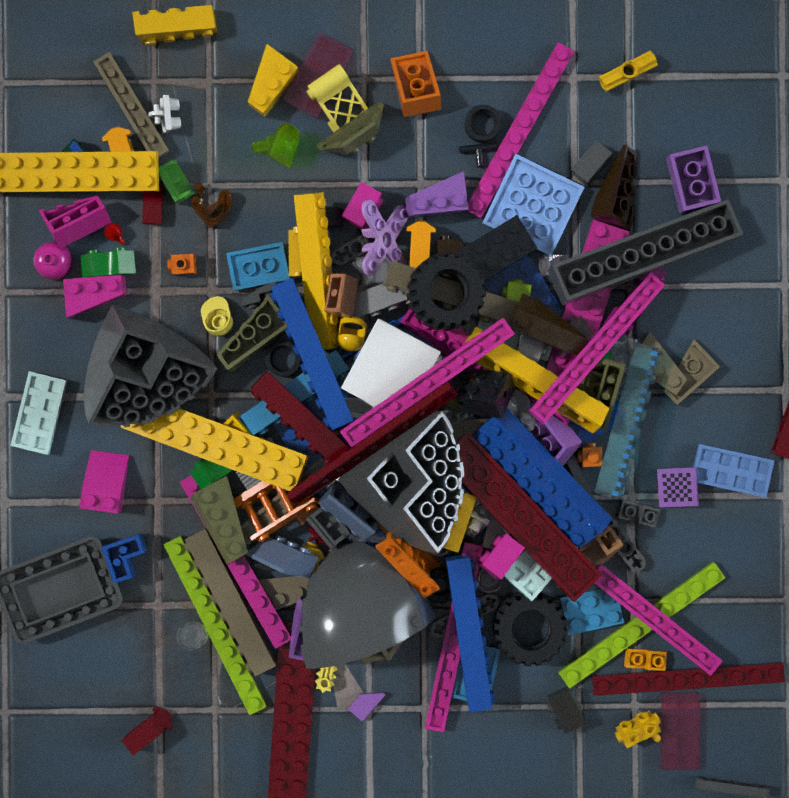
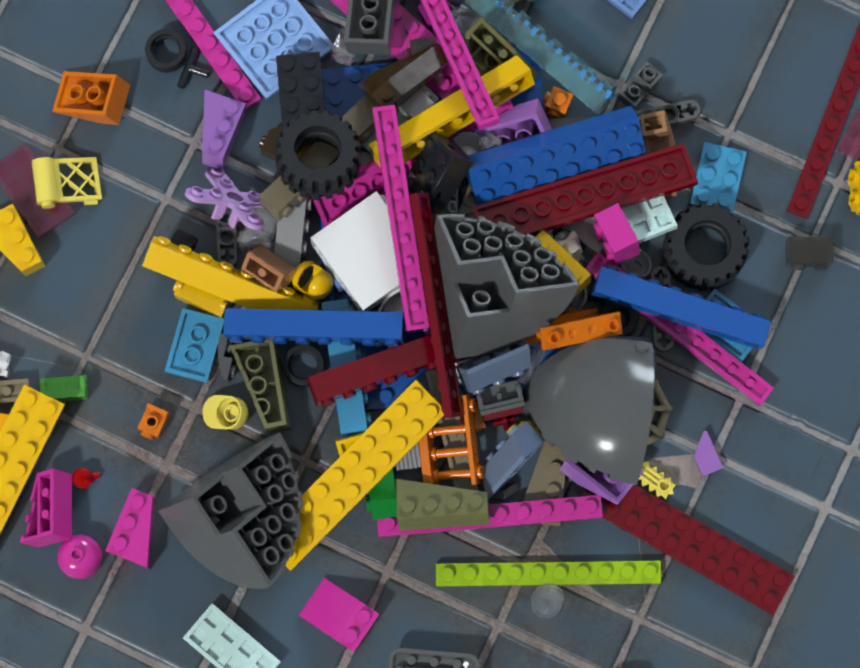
camera: 60 degrees left, 10 degrees down
(108, 263) = (112, 498): green brick -> none
(119, 556) = (422, 635): blue brick -> none
(153, 206) = (78, 424): dark red slope -> none
(222, 206) = (114, 353): reddish brown helmet -> none
(231, 602) = (531, 543): dark tan brick -> none
(280, 146) = (82, 262): clear neon green piece -> none
(353, 212) = (192, 215): dark pink brick -> none
(355, 132) = (109, 180): olive wedge -> none
(420, 242) = (254, 167): light orange piece -> none
(515, 289) = (350, 94): lime brick -> none
(636, 629) = (757, 137): lime plate -> none
(645, 659) = (794, 148): light orange slope -> none
(657, 621) = (760, 114): dark pink plate -> none
(677, 487) = (632, 32): medium lavender tile -> none

